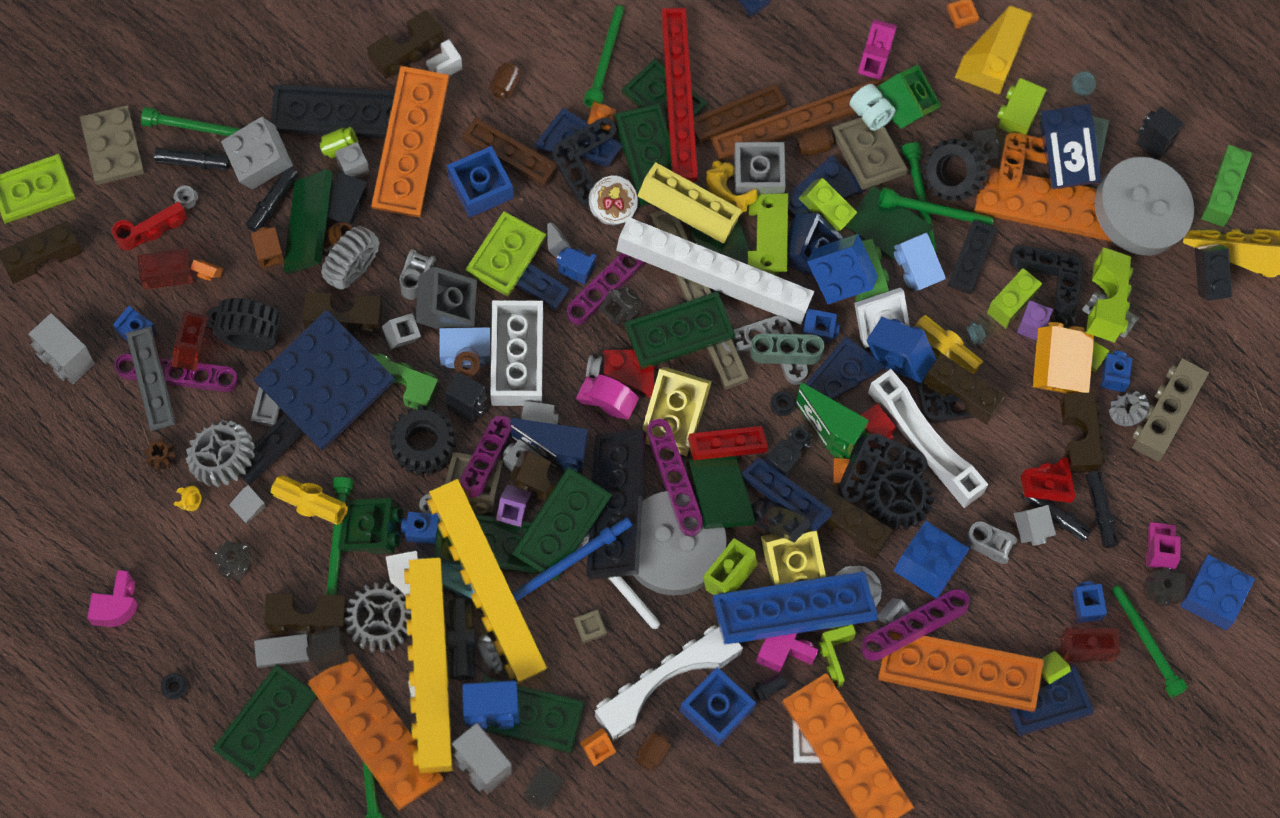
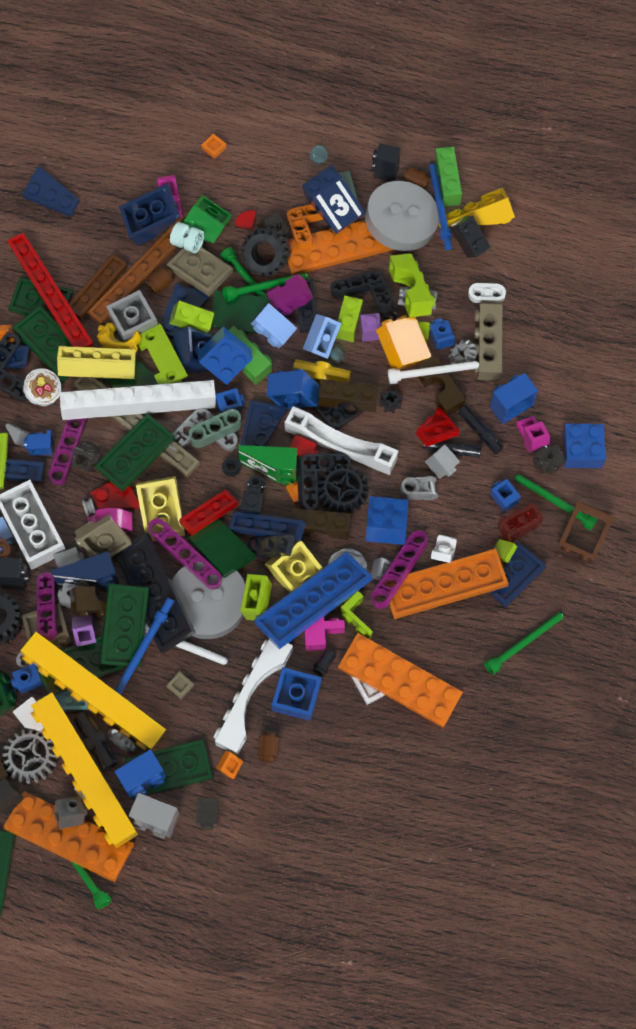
camera: 25 degrees left, 0 degrees up
(389, 704) = (69, 812): none -> dark grey brick
(589, 410) = (102, 537): none -> dark tan plate
(842, 58) = (149, 214): none -> dark blue slope
(887, 305) = (258, 374): white tile -> none
(955, 119) = (246, 219): none -> red tile
(958, 237) = (290, 296): none -> magenta brick
(968, 794) = (493, 664): none -> green piece
(970, 302) = (322, 336): none -> light blue brick
(982, 628) = (444, 548): none -> white bracket
(992, 55) = (248, 165): yellow wedge -> none
(1008, 427) = (385, 401): none -> black gear
(1021, 108) = (286, 190): lime brick -> none
(1034, 394) = (396, 375): none -> white piece
(1161, 491) = (513, 398): none -> blue brick
(1185, 251) = (445, 232): none -> blue bar
(1185, 679) = (568, 547): none -> reddish brown window
(1187, 168) = (416, 177): none -> reddish brown brick
(1198, 349) = (486, 293): none -> white plate

